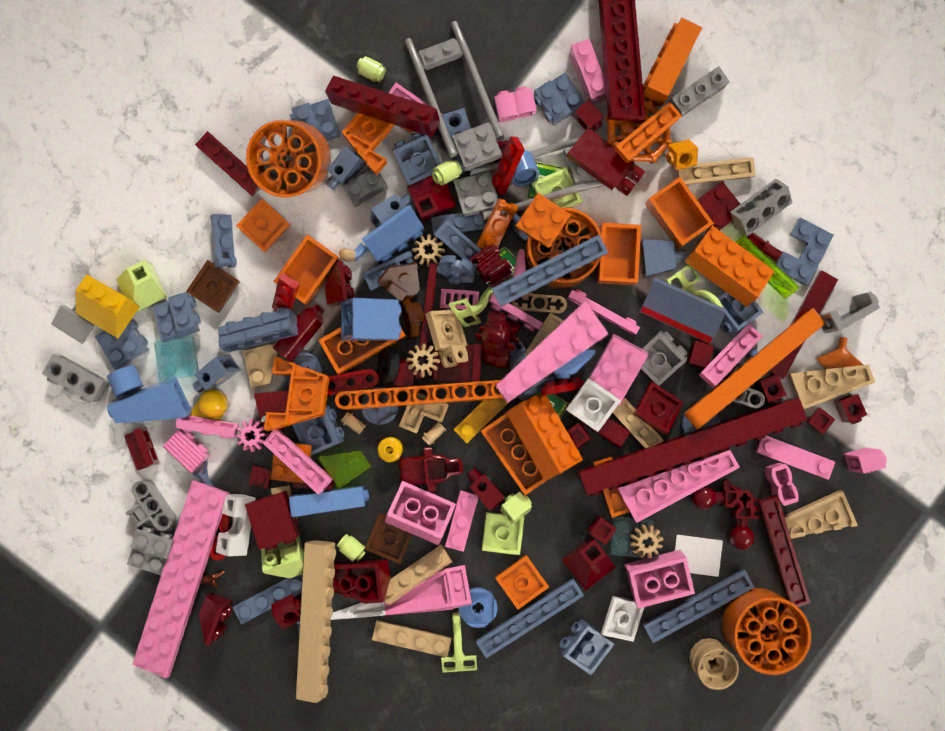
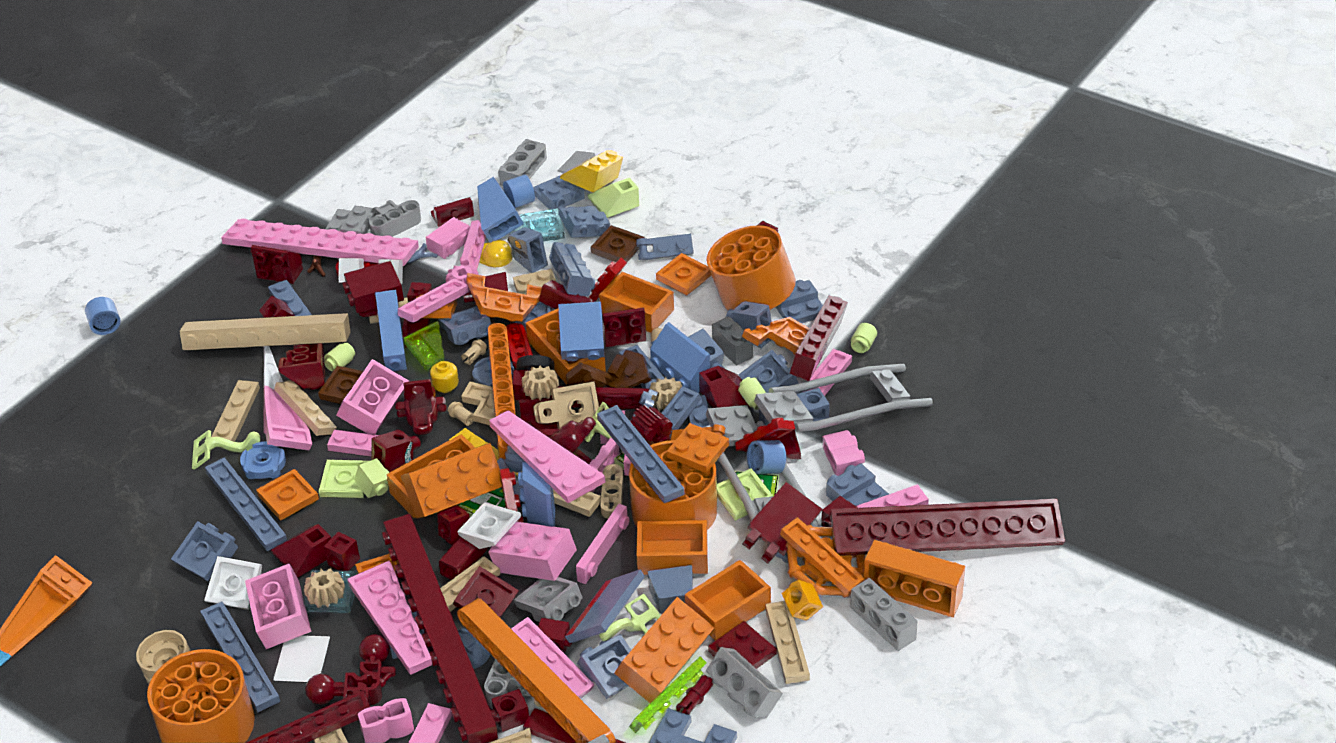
camera: 90 degrees right, 45 degrees down
(284, 560) = (332, 301): yellowish green slope -> none

